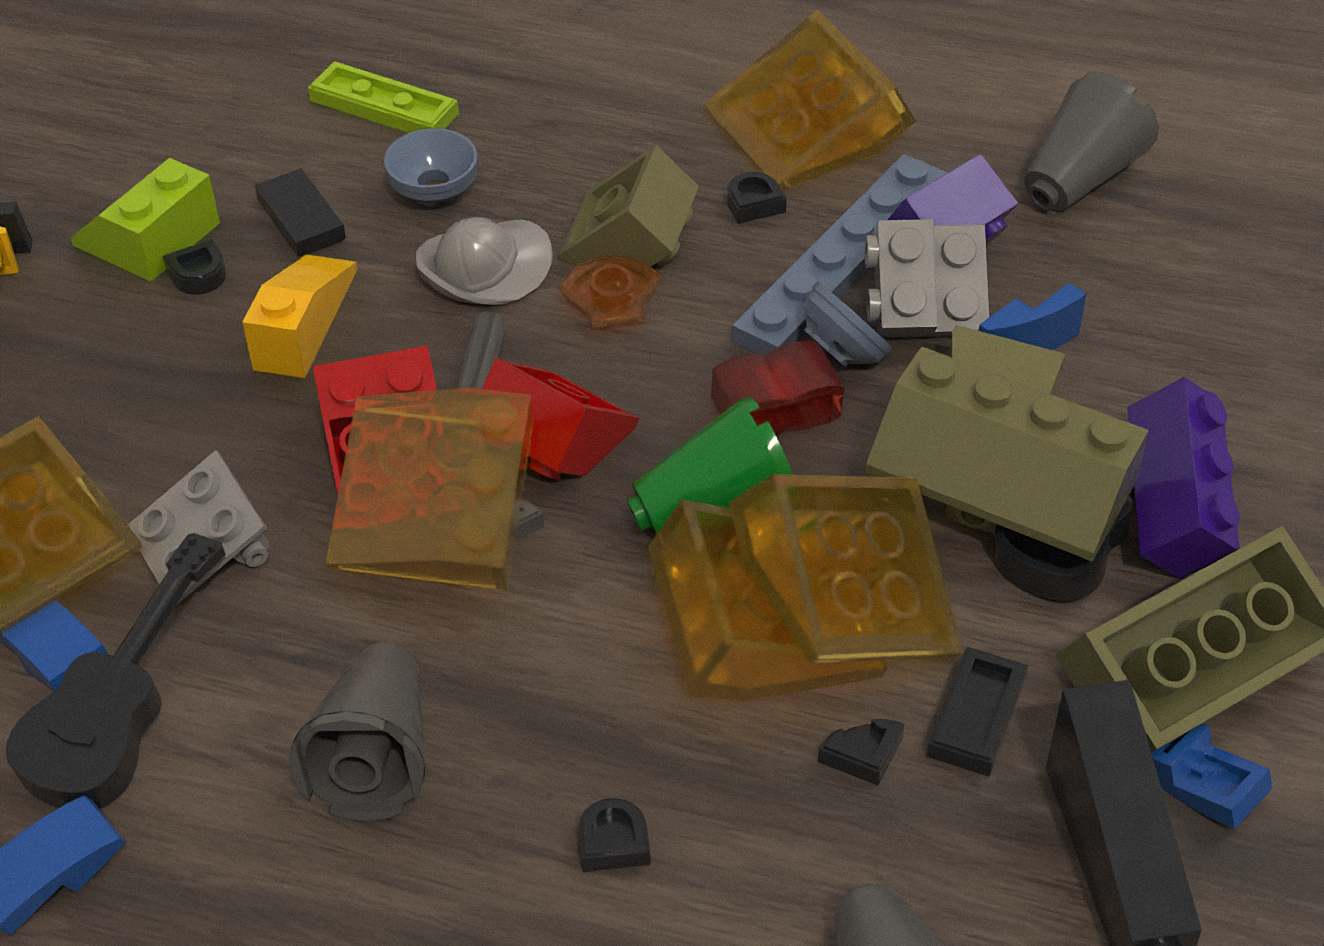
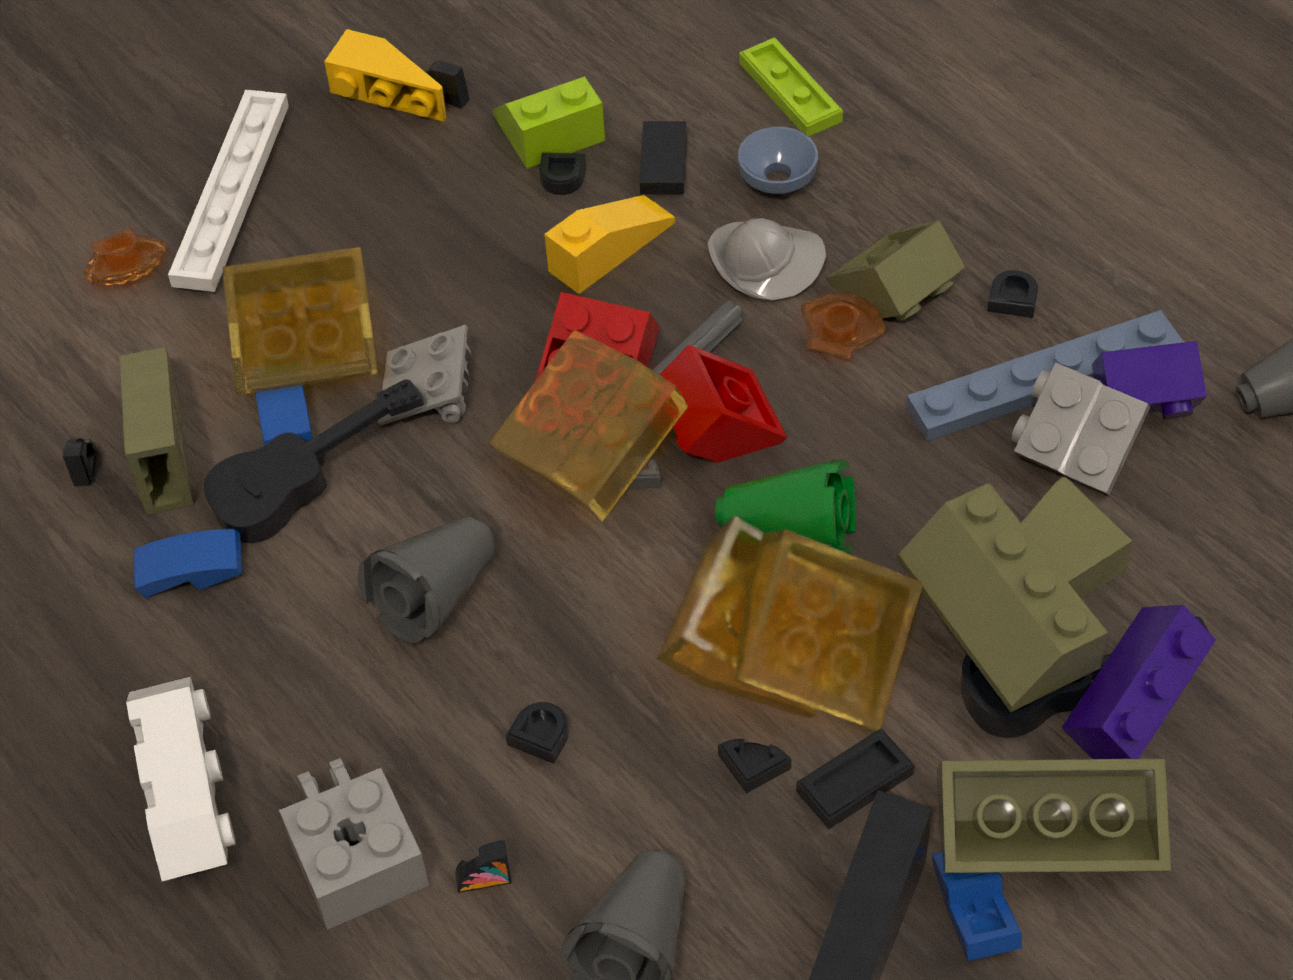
camera: 35 degrees right, 5 degrees up
(789, 384) = (897, 464): clear red brick -> none
(810, 105) = (1115, 234): clear yellow slope -> none
(841, 329) = (984, 436): sand blue piece -> none
(1046, 325) = (1142, 511): blue slope -> none

